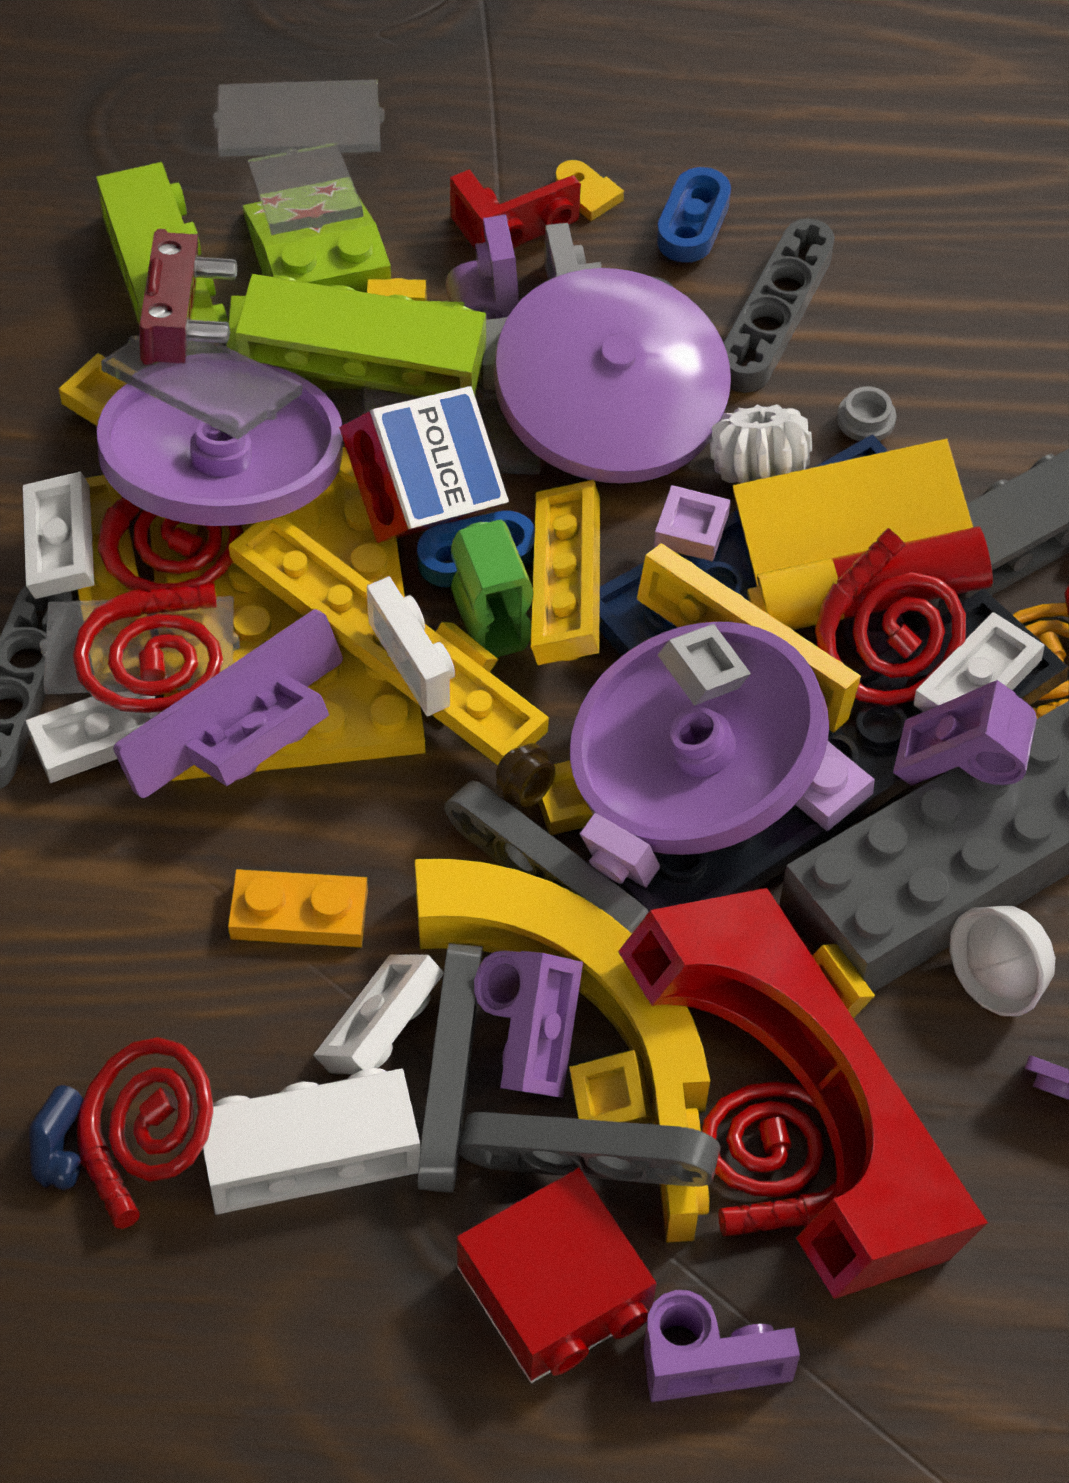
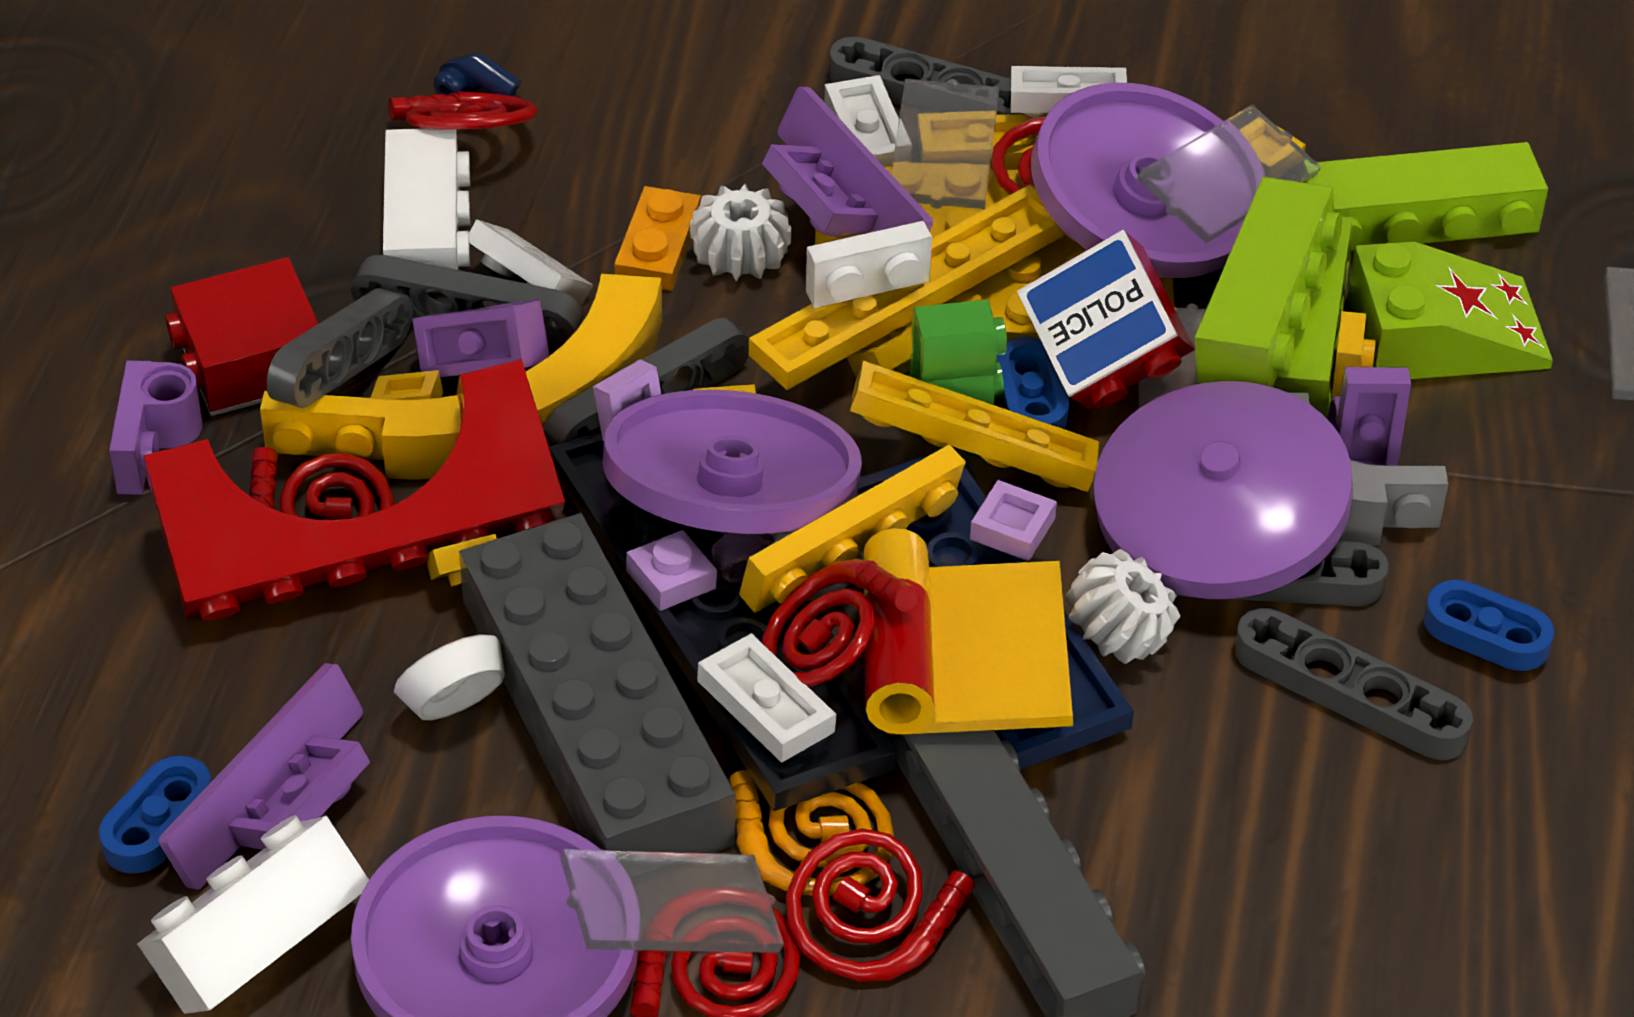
camera: 100 degrees right, 10 degrees down
(151, 659) = (909, 134): red piece -> none
(170, 298) = (1328, 152): dark red piece -> none
(296, 819) = (740, 232): none -> white gear
(305, 188) = (1523, 302): clear piece -> none
(524, 775) = (731, 356): dark brown plate -> none
(525, 214) = (1475, 457): red bracket -> none
(596, 193) = (1544, 553): yellow piece -> none
(704, 664) = (795, 451): light grey plate -> none
(866, 413) = (1175, 728): light grey plate -> none
(979, 731) = (662, 650): medium lavender plate -> none

